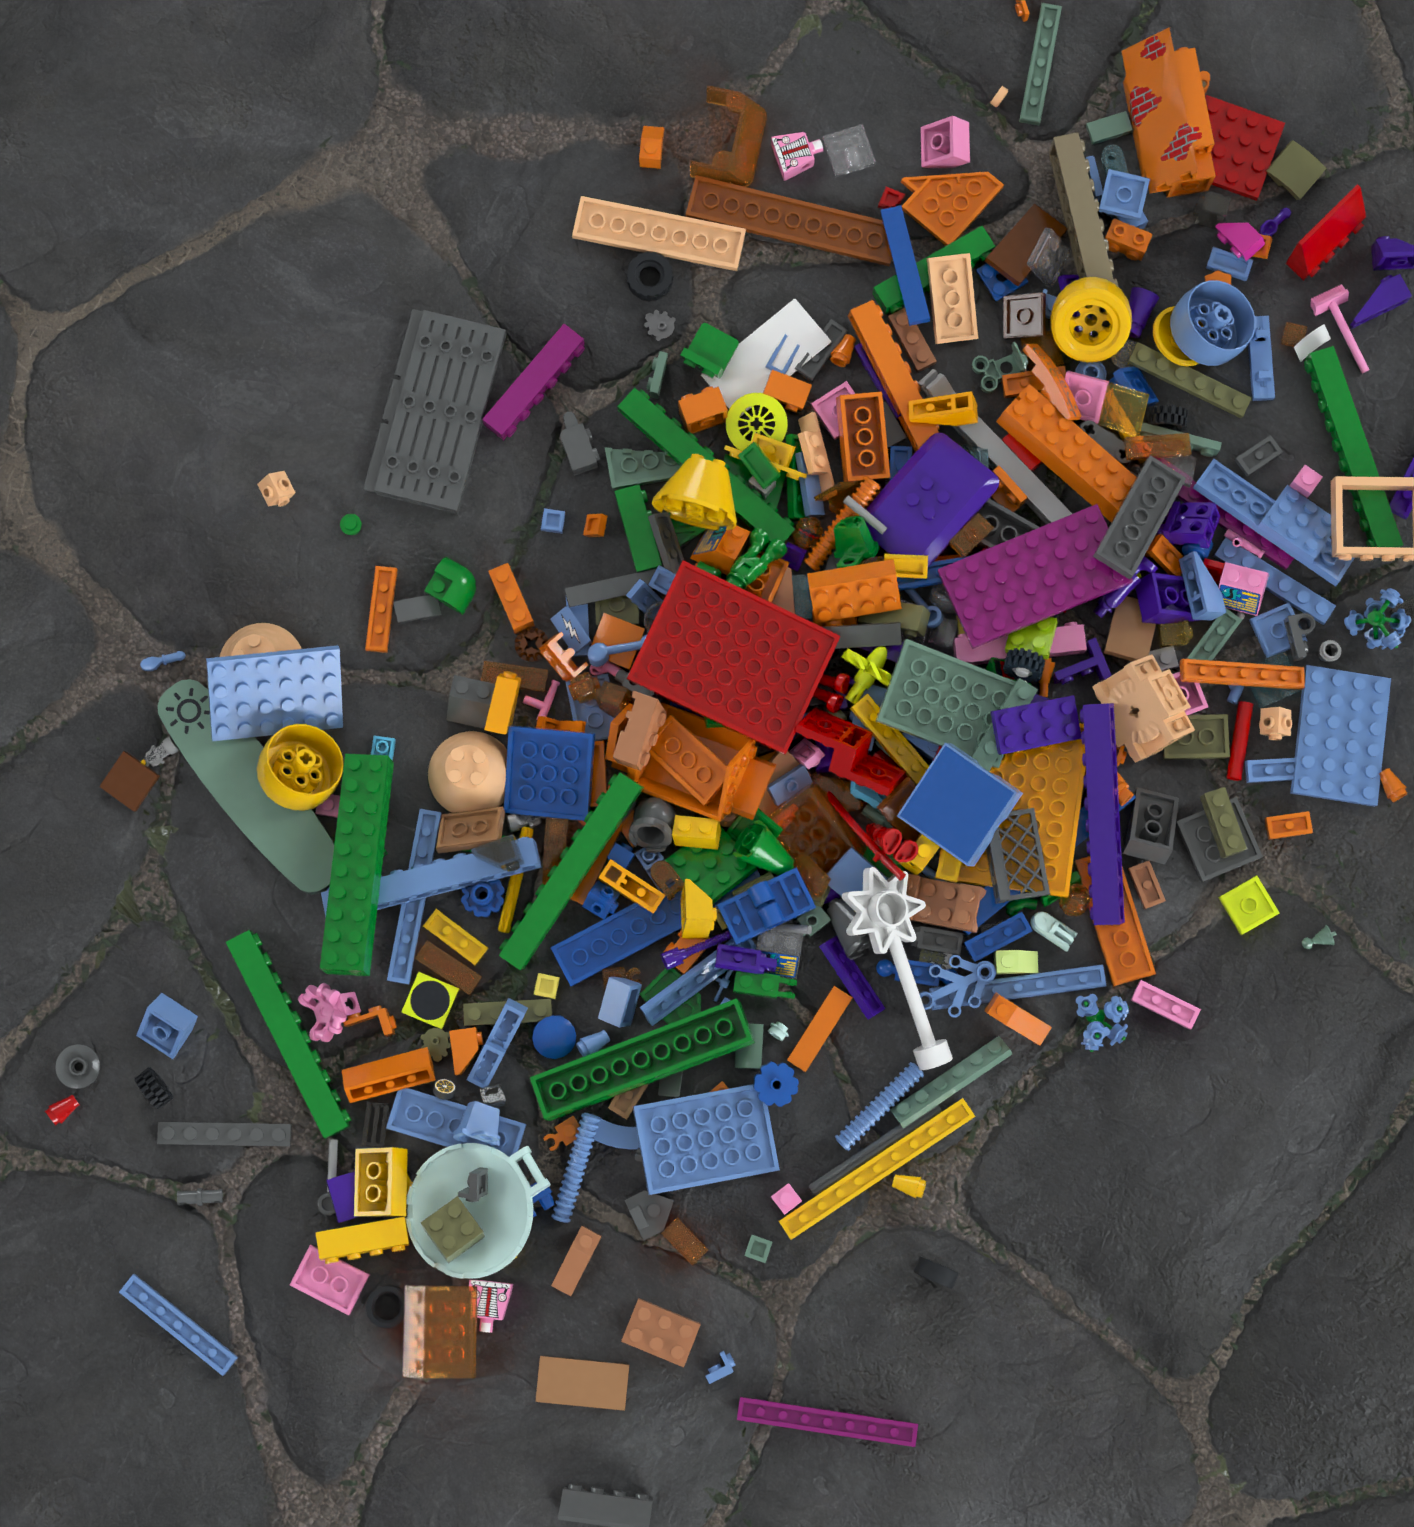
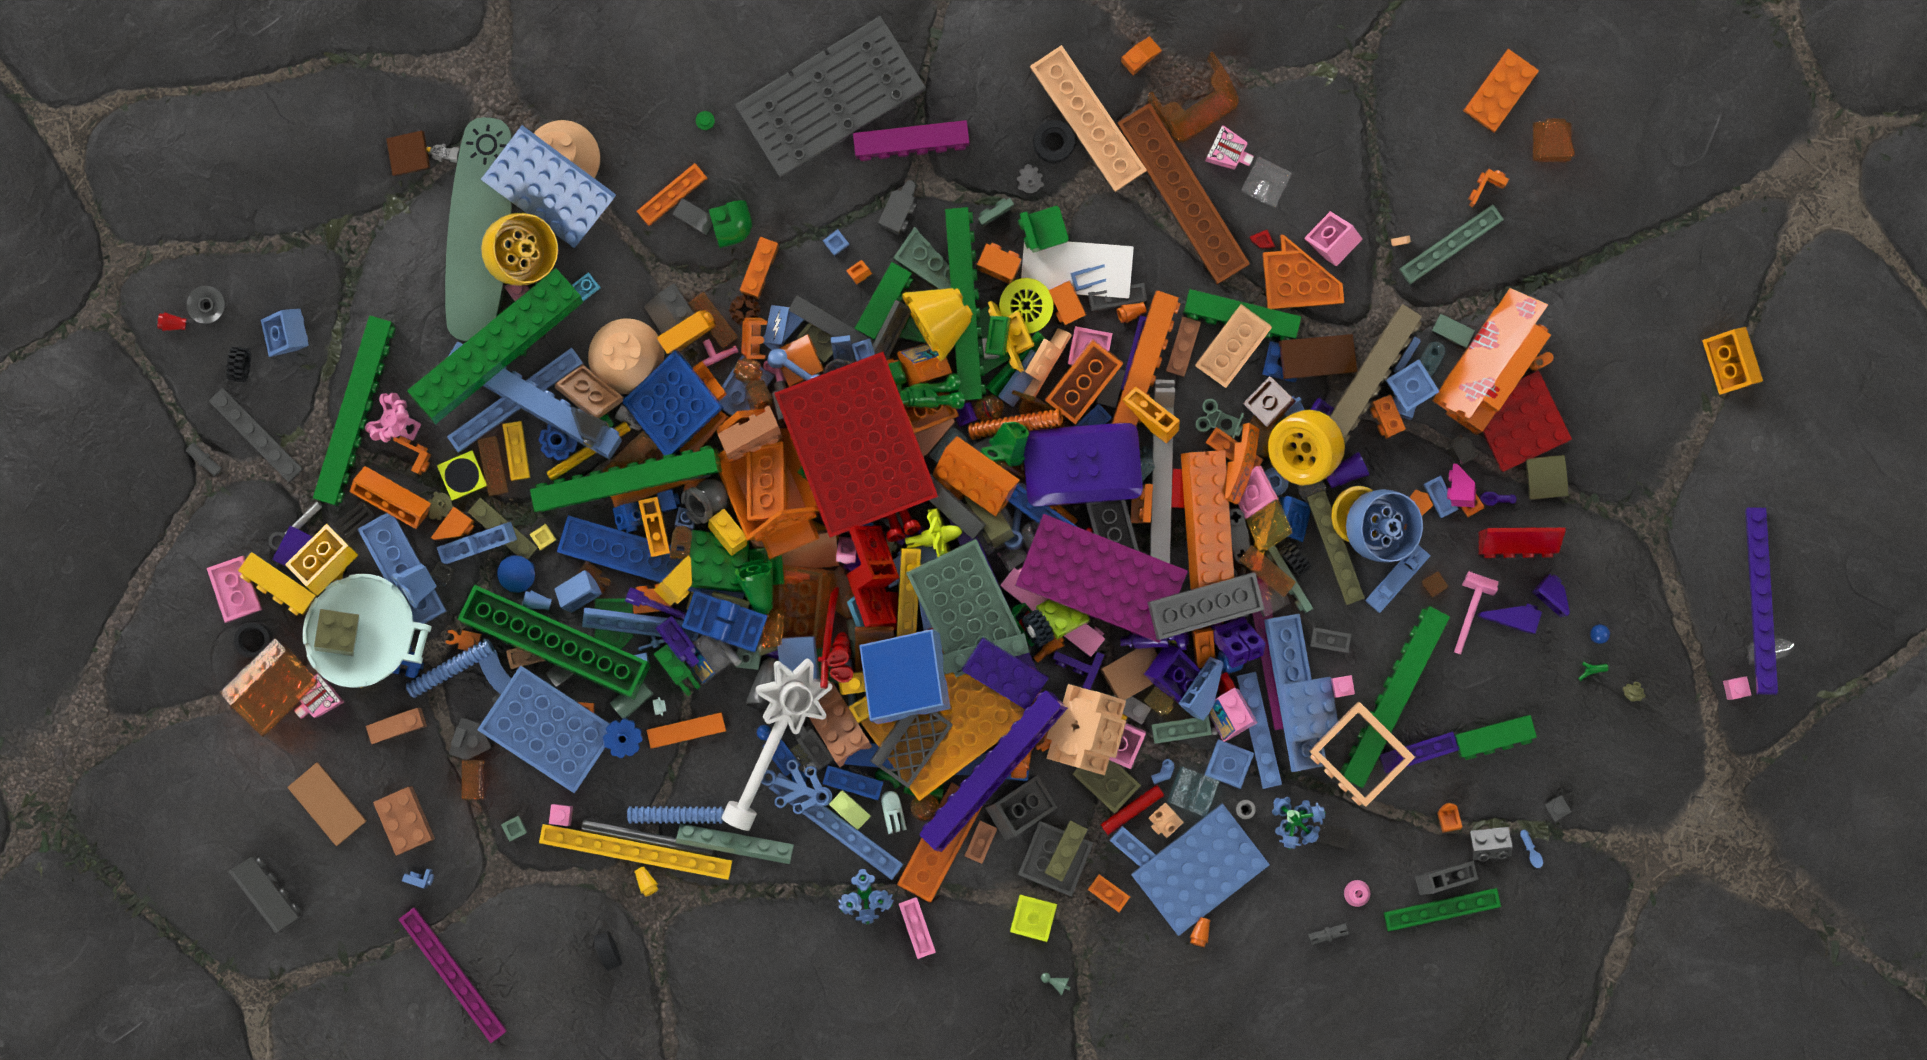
camera: 45 degrees right, 5 degrees up
(153, 663) = (494, 90): medium blue piece -> none
(178, 1324) = (116, 526): medium blue plate -> none
(276, 489) = (679, 52): light nougat brick -> none
(444, 1089) = (417, 539): dark grey tile -> none
(477, 1185) = (377, 619): dark grey bracket -> none
(789, 784) = (816, 558): medium blue plate -> none
(852, 978) = (736, 719): dark purple plate -> none
(875, 523) = (1032, 433): light grey piece -> none
(905, 265) = (1223, 294): blue tile -> none
(909, 565) = (1028, 493): yellow tile -> none
(971, 535) = (1087, 512): clear orange plate -> none
(1017, 1019) = (814, 845): orange slope -> none
(1048, 257) = (1323, 379): clear plate -> none
(1240, 541) = (1261, 682): bright pink piece -> none
(1242, 674) = (1173, 769): orange tile -> none
(1295, 634) = (1235, 776): dark grey plate -> none
(1311, 342) = (1441, 600): white sticker -> none

